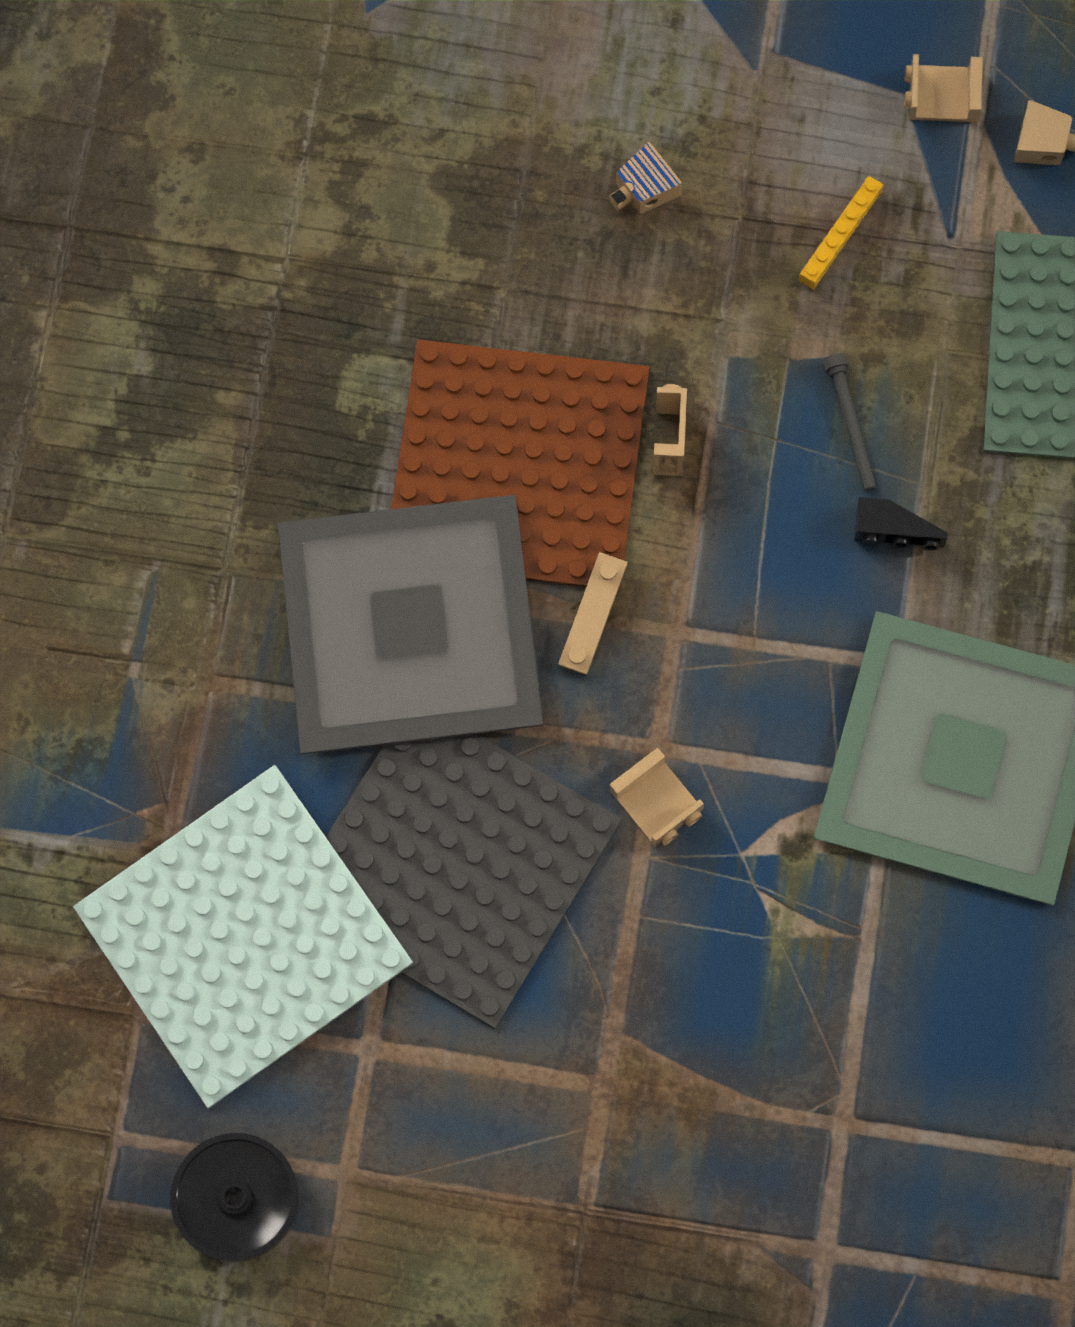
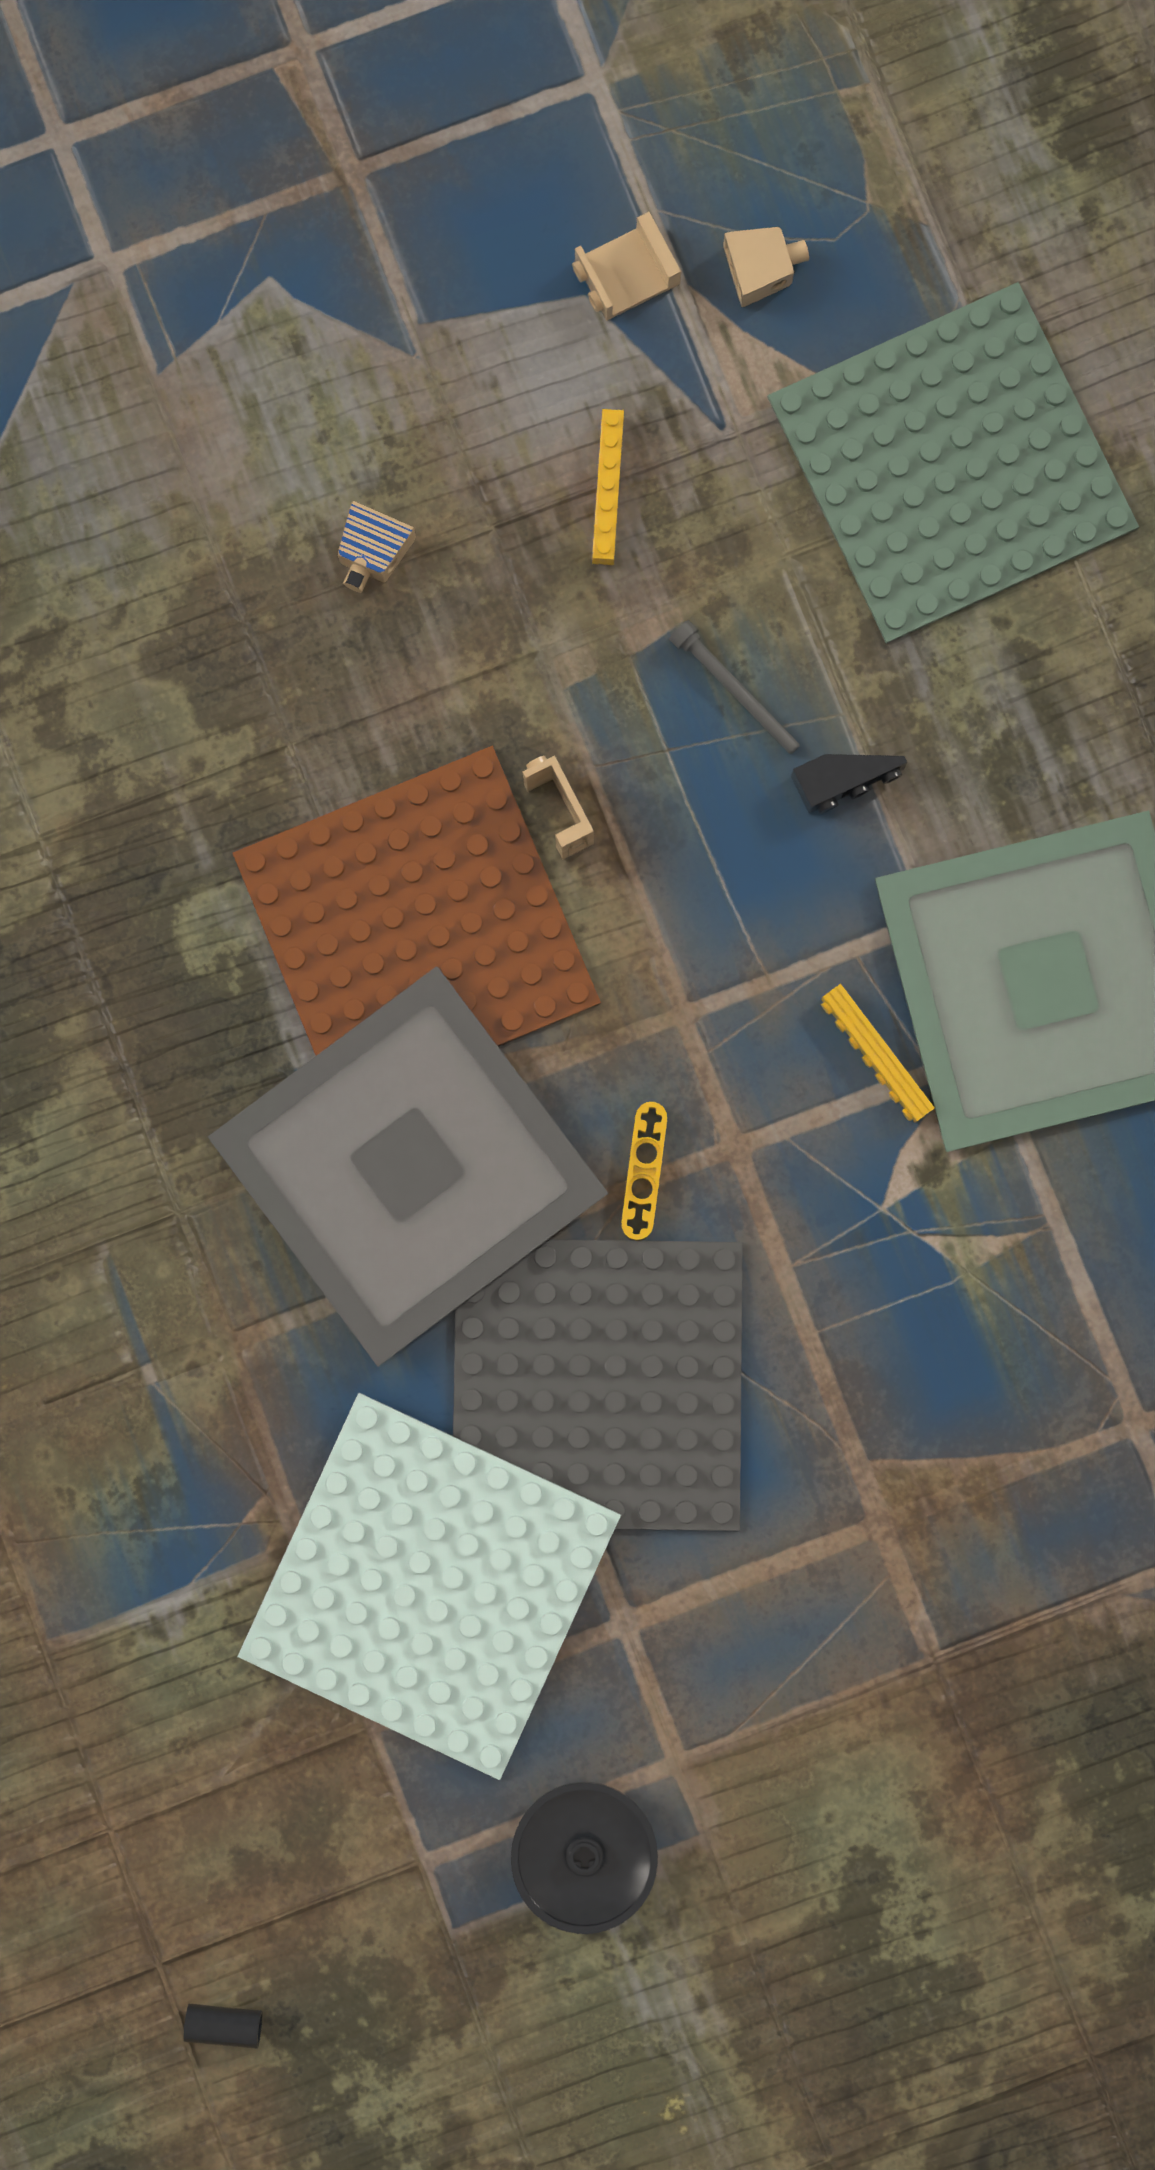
camera: 30 degrees left, 10 degrees up
(582, 728) = (640, 1170): none -> yellow beam
(593, 613) = (589, 1045): tan plate -> none
(656, 799) = (767, 1203): tan panel -> none
(802, 738) = (876, 1054): none -> yellow piece

